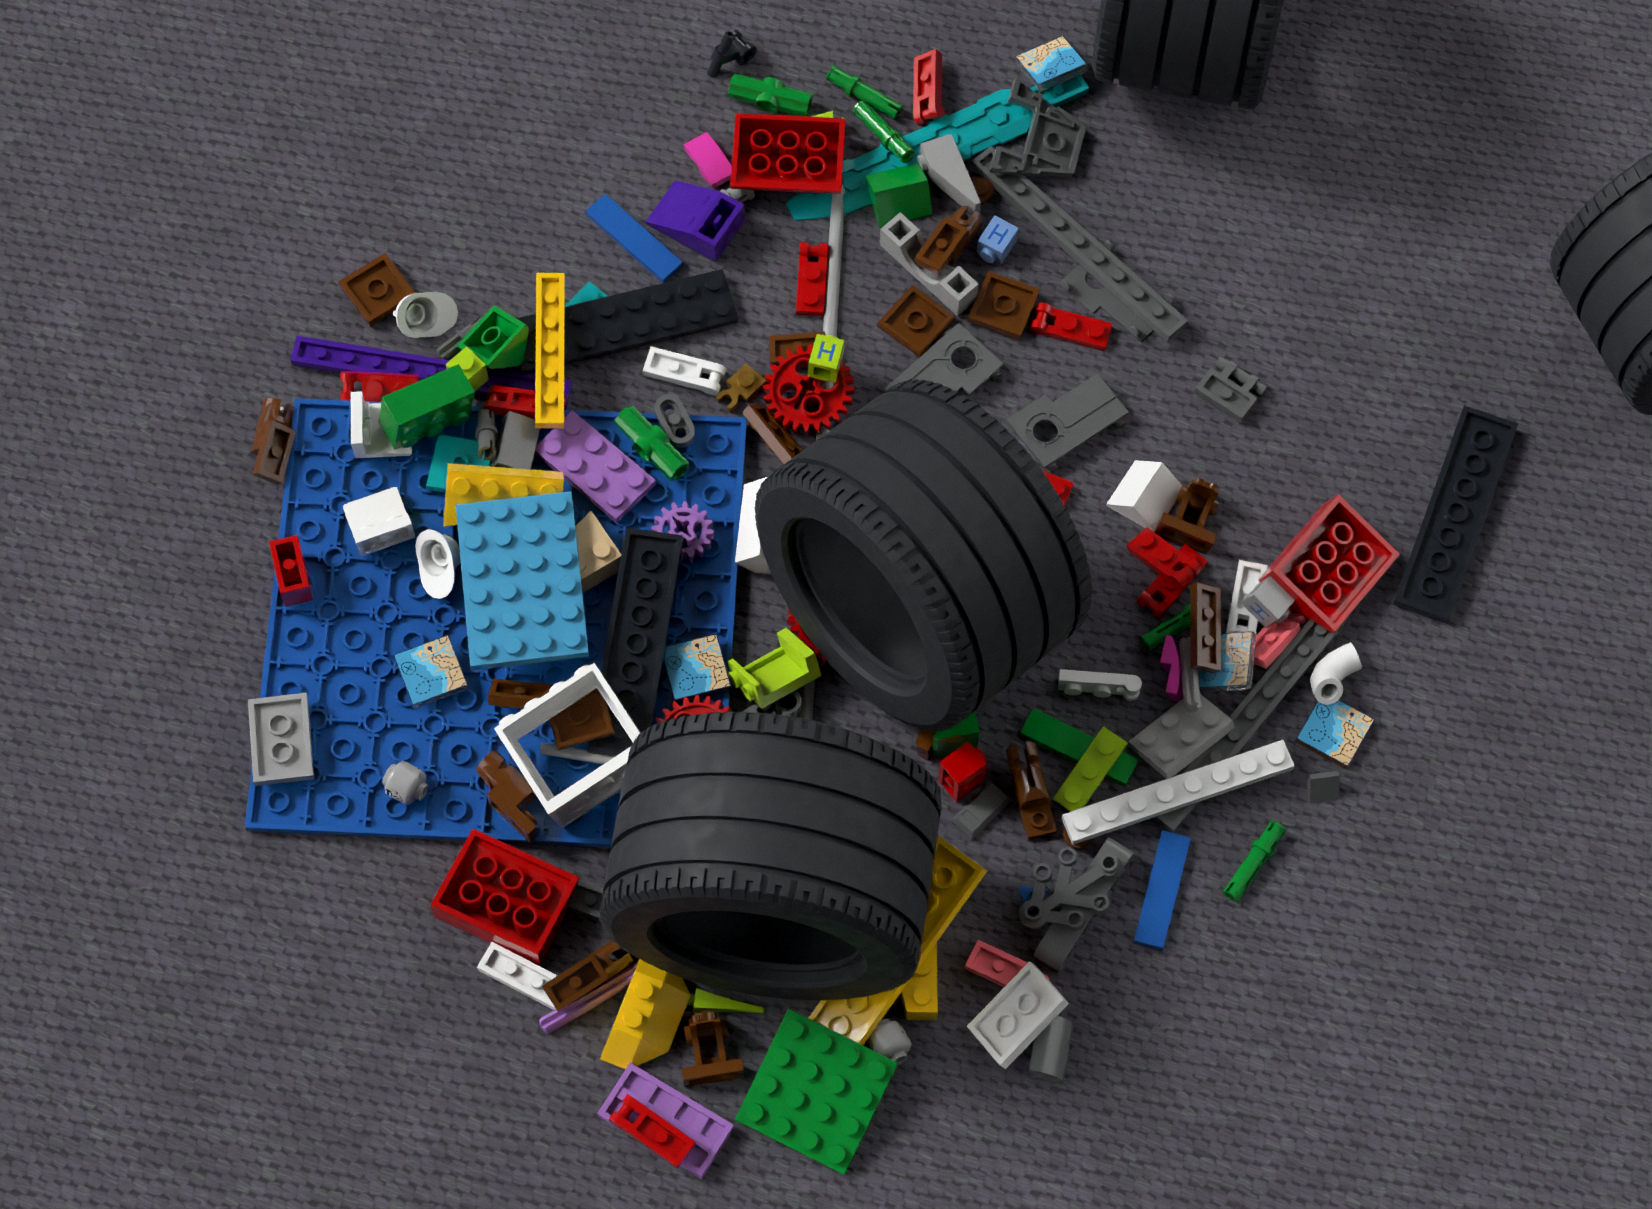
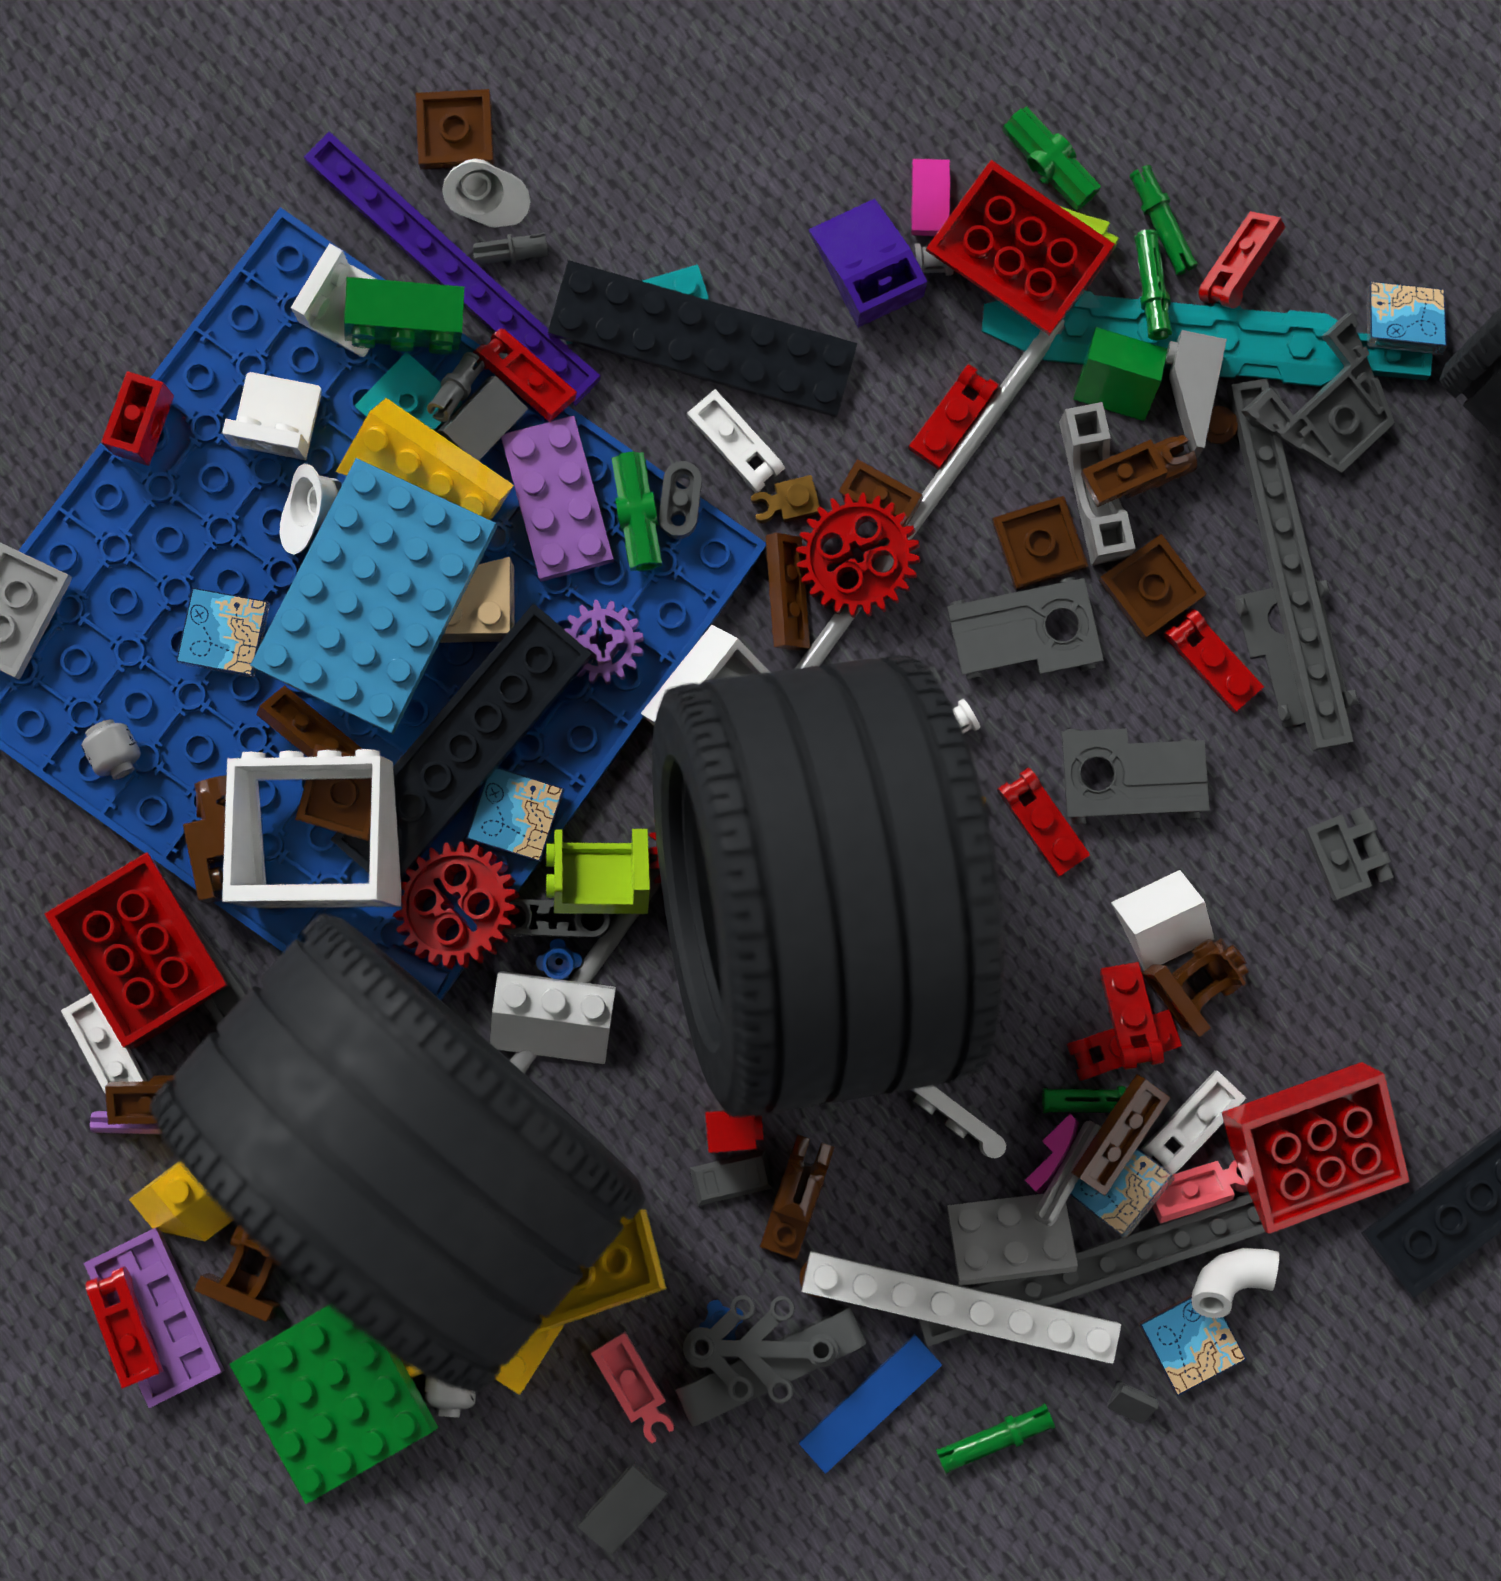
camera: 30 degrees right, 15 degrees up
(273, 441) = (222, 245): reddish brown plate -> none
(374, 384) = (380, 249): red plate -> none
(472, 366) = (483, 295): lime brick -> none
(497, 339) = (538, 278): green slope -> none
(549, 350) = (587, 329): yellow plate -> none
(574, 754) = (324, 835): light grey bar -> none
(634, 238) = (783, 242): blue tile -> none
(731, 48) = (1042, 71): black piece -> none
(826, 358) = (896, 534): lime brick -> none
(997, 240) = (1196, 502): medium blue brick -> none
(1017, 1015) = (606, 1456): white plate -> none
(1071, 743) = (888, 1175): green tile -> none
(1090, 770) = (879, 1215): lime plate -> none
(1268, 602) = (1215, 1148): light grey brick -> none

